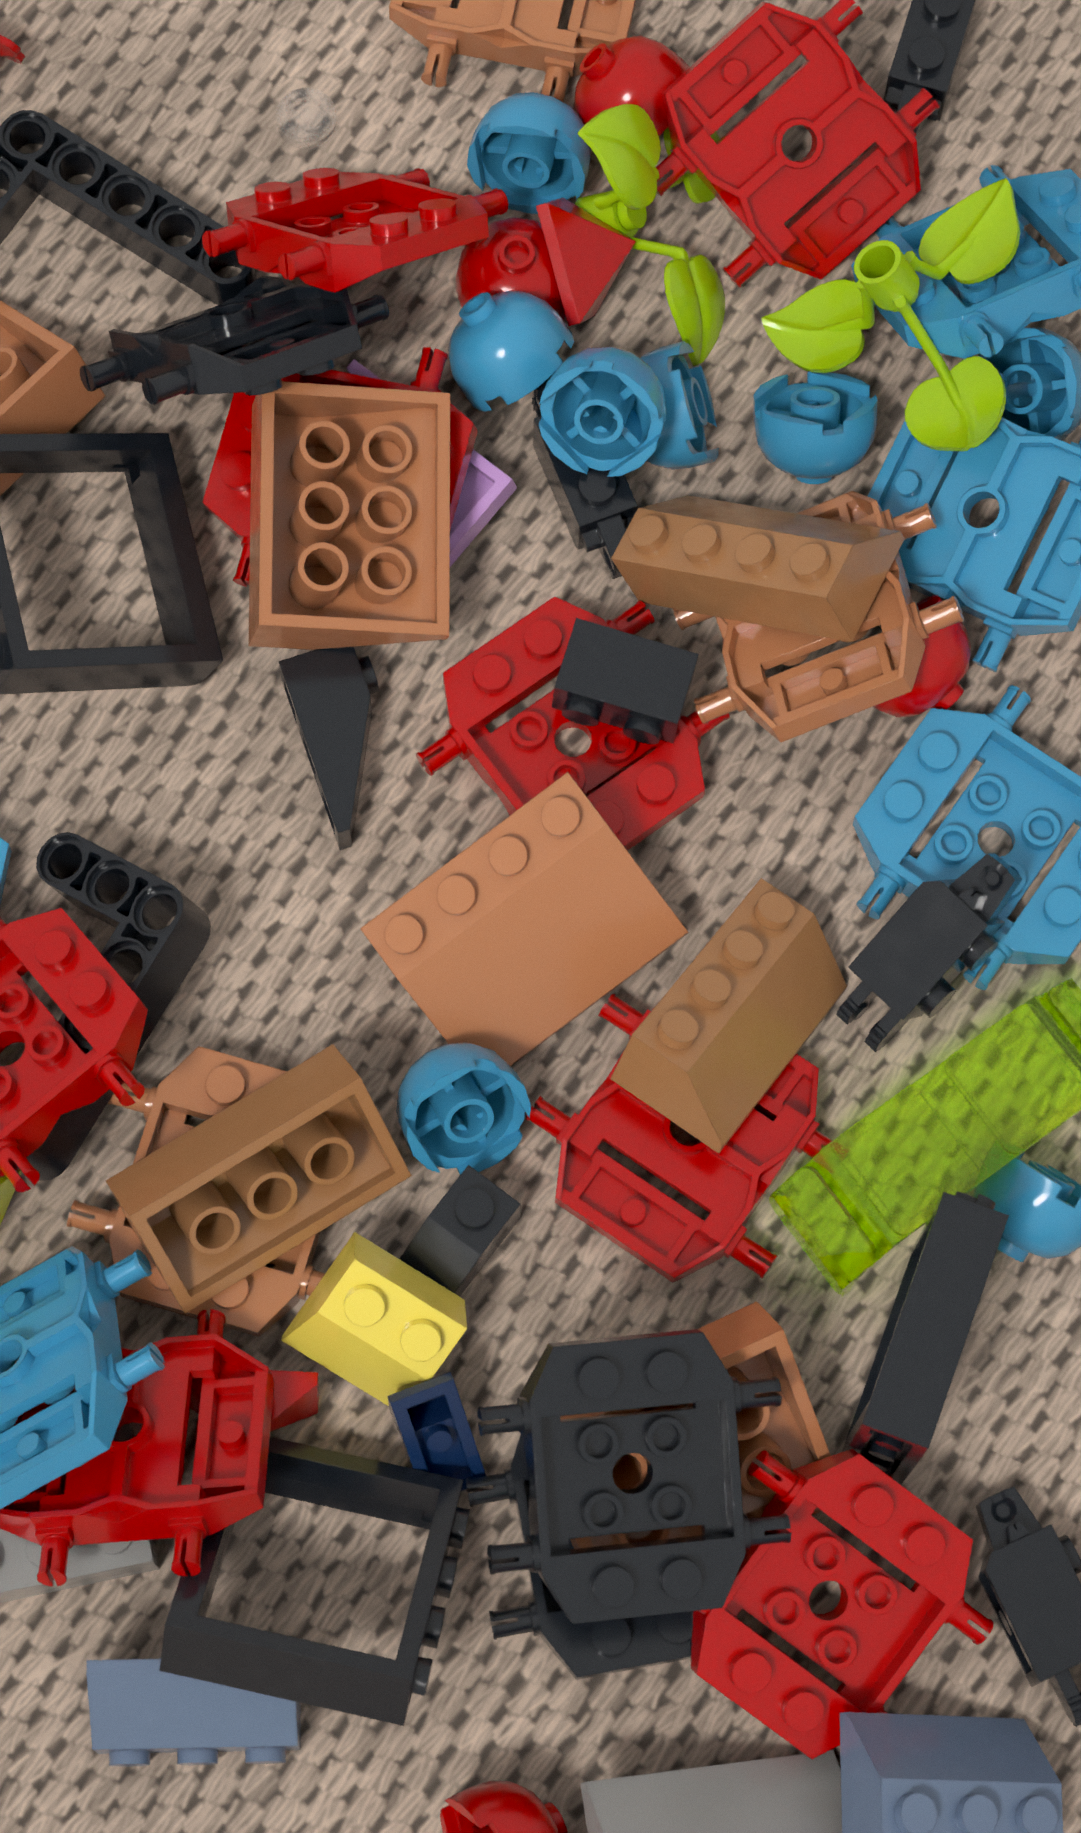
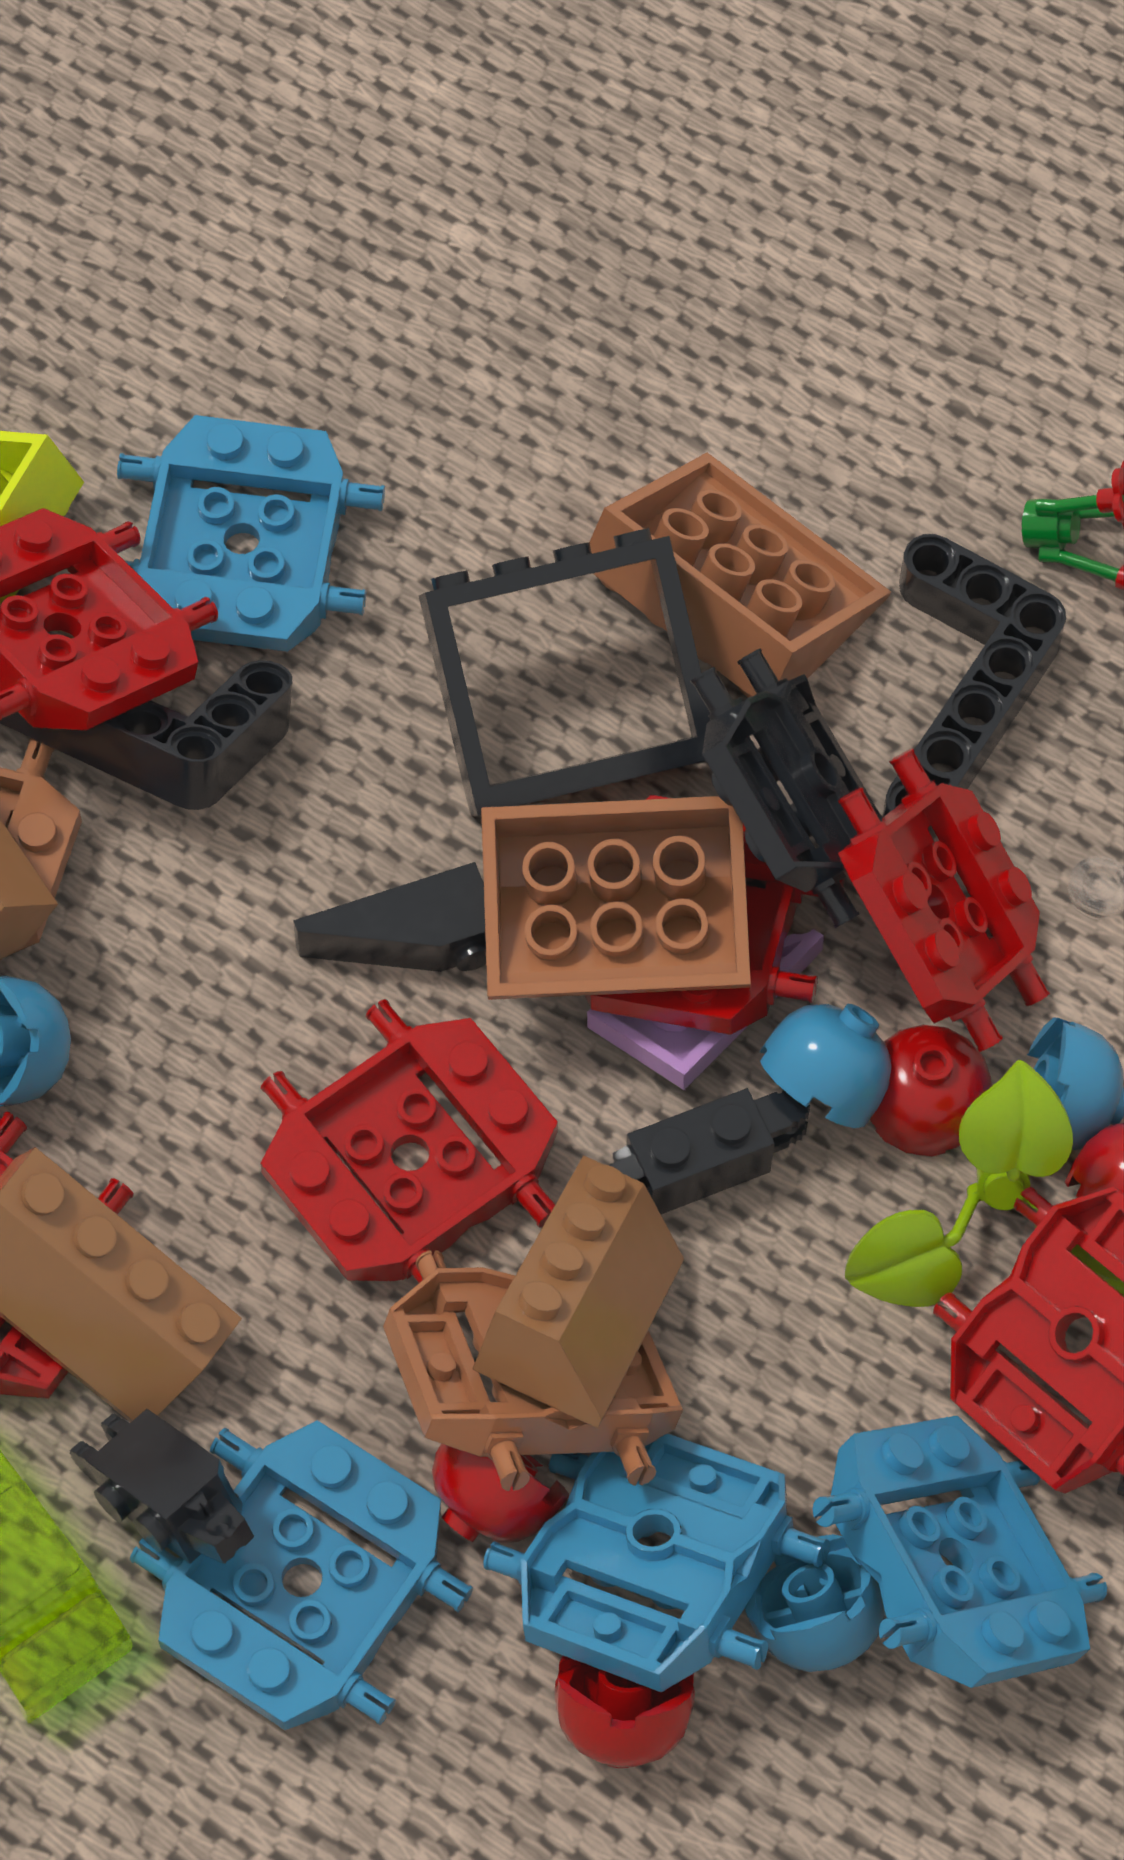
camera: 90 degrees right, 10 degrees down
(525, 926) = (193, 1095): nougat slope -> none
(583, 256) = (925, 1138): red slope -> none
(603, 411) = (740, 1132): dark azure cylinder -> none
(623, 682) = (449, 1176): black brick -> none
(688, 409) = (788, 1229): dark azure cylinder -> none
(815, 425) = (766, 1375): dark azure cylinder -> none
(827, 323) = (895, 1400): lime plant -> none

